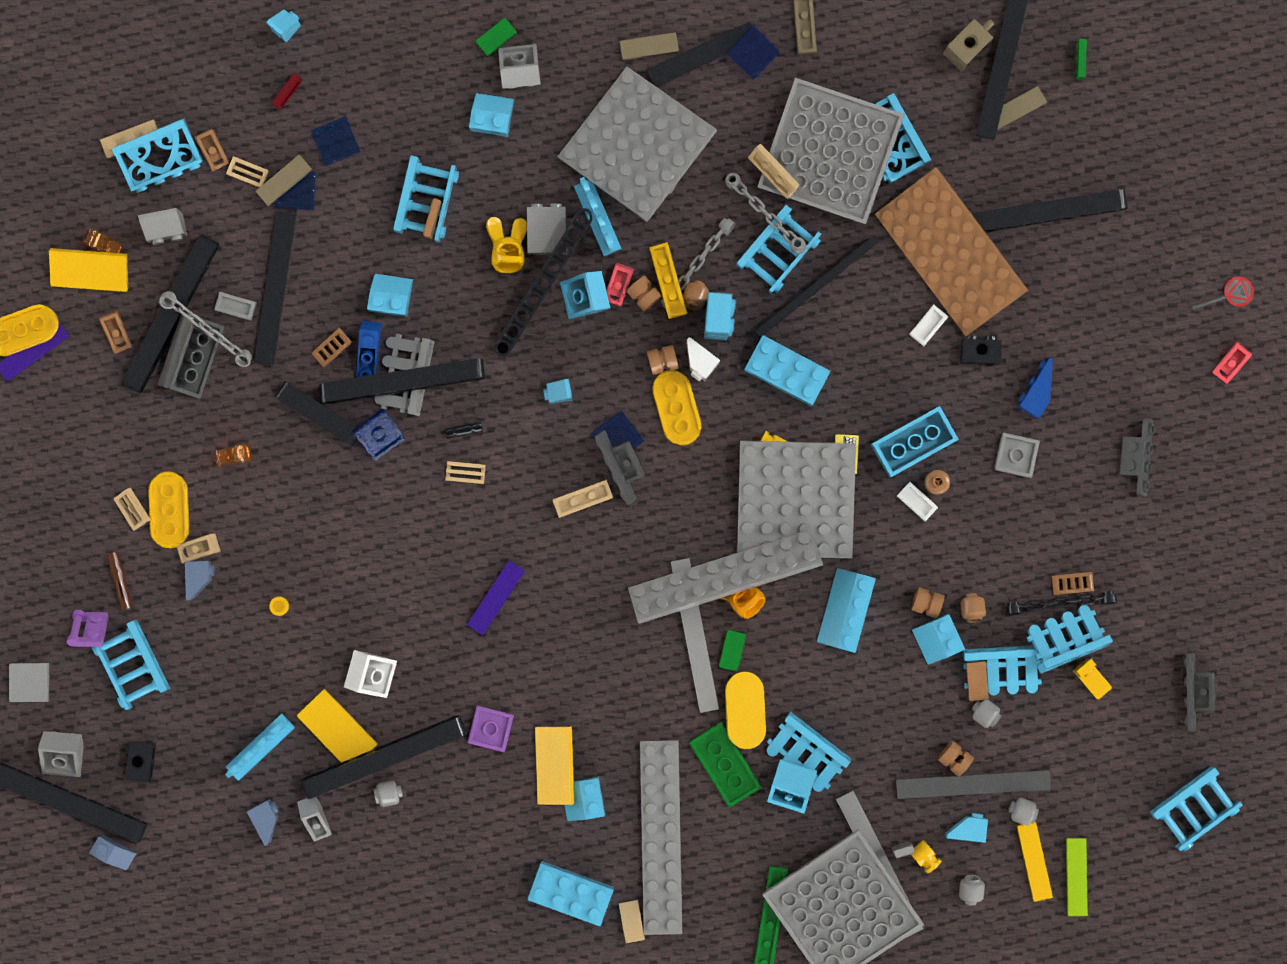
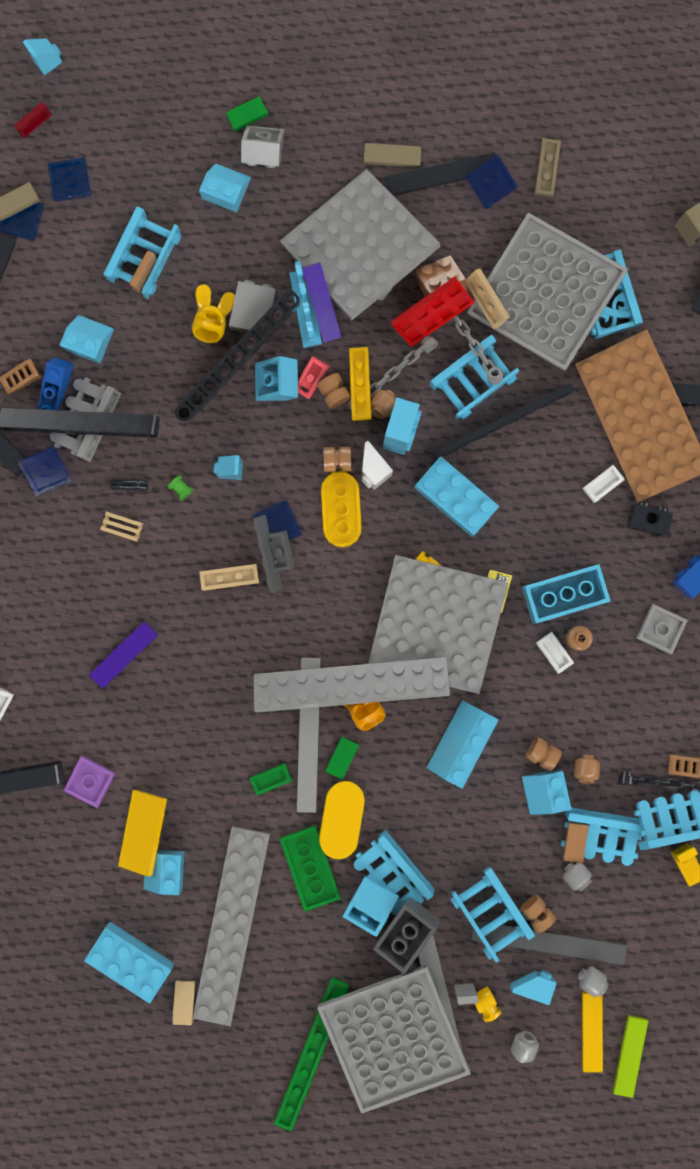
camera: 10 degrees right, 0 degrees up
(515, 422) = (180, 488): none -> bright green bush
(613, 210) = (321, 302): none -> dark purple tile
(667, 686) = (270, 779): none -> green tile
(724, 196) = (433, 311): none -> red plate
(726, 164) = (437, 273): none -> medium nougat brick
(833, 805) = (407, 935): none -> dark grey brick
(930, 762) = (510, 913): none -> medium azure fence

